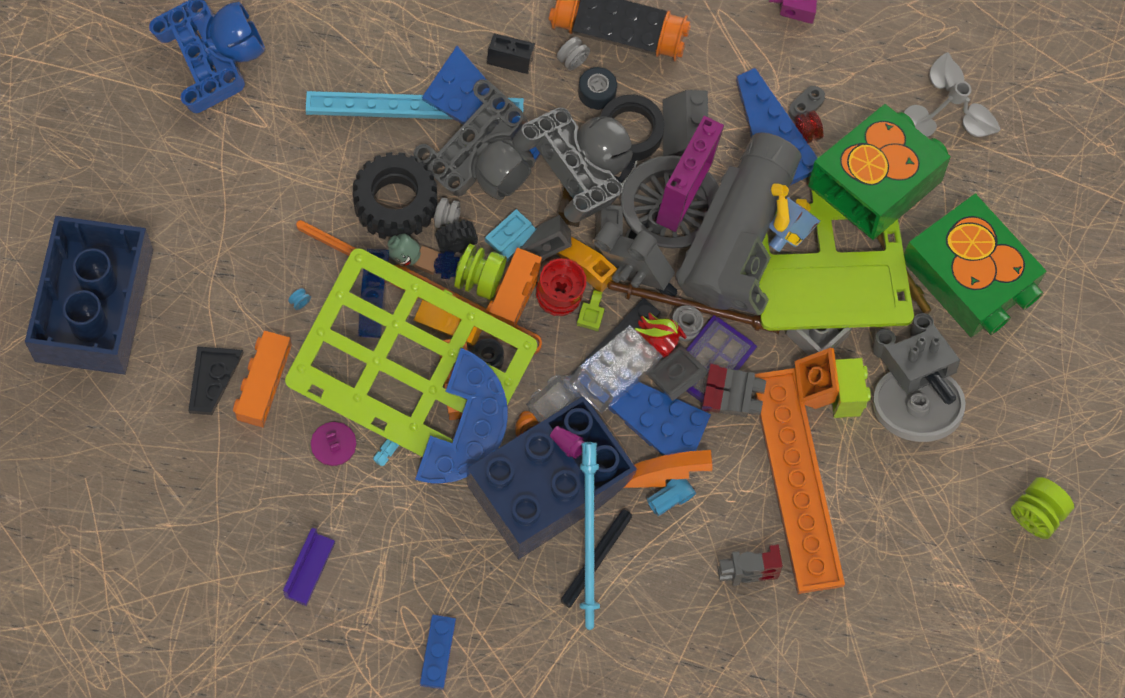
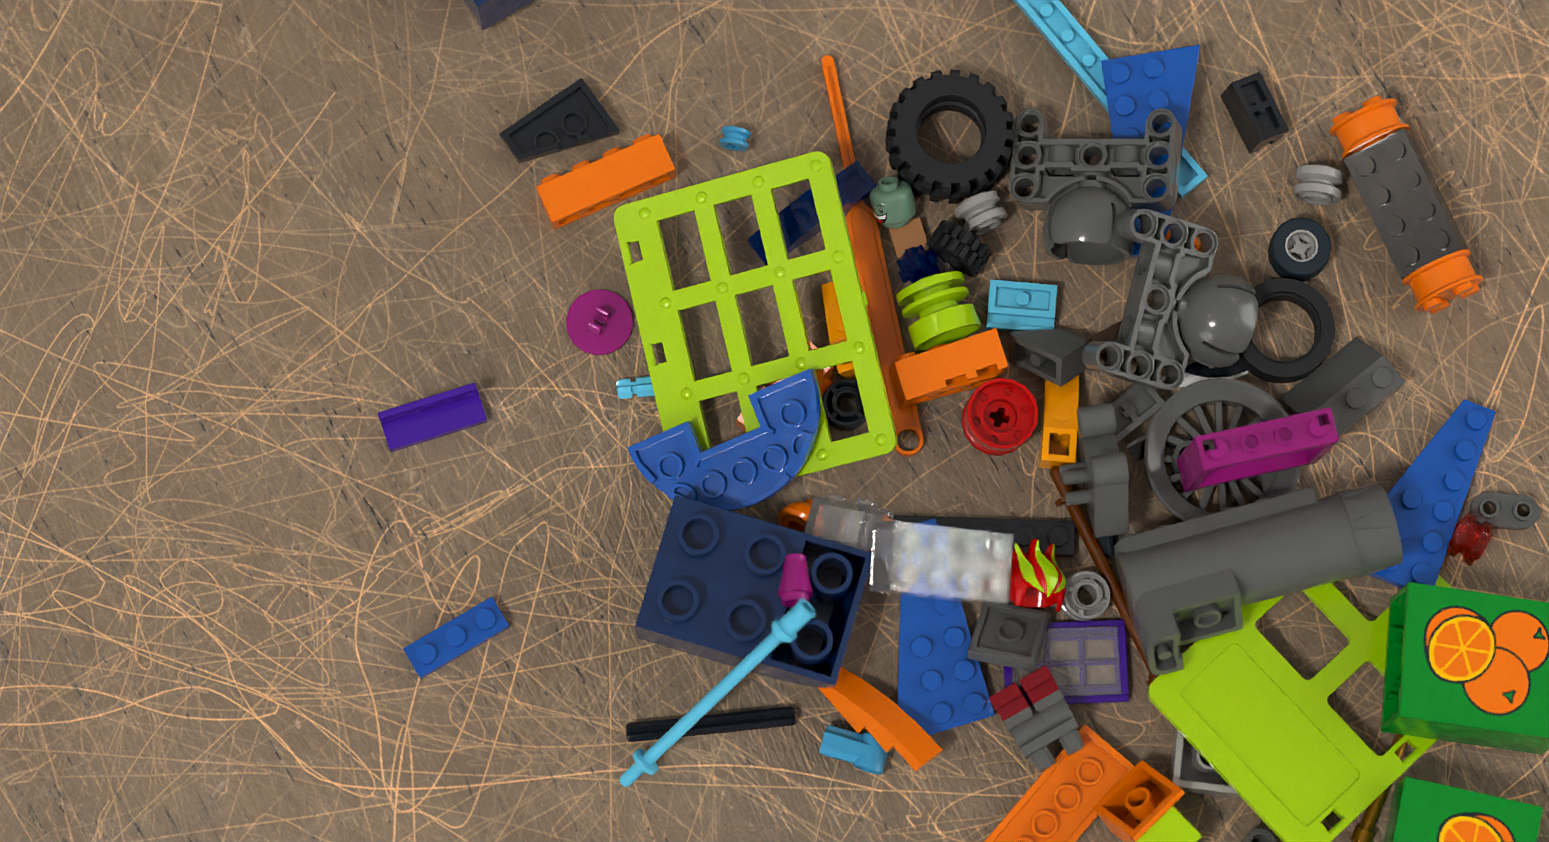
camera: 55 degrees right, 10 degrees up
(591, 314) = (1001, 479): lime plate -> none
(792, 219) = (1310, 614): torso -> none

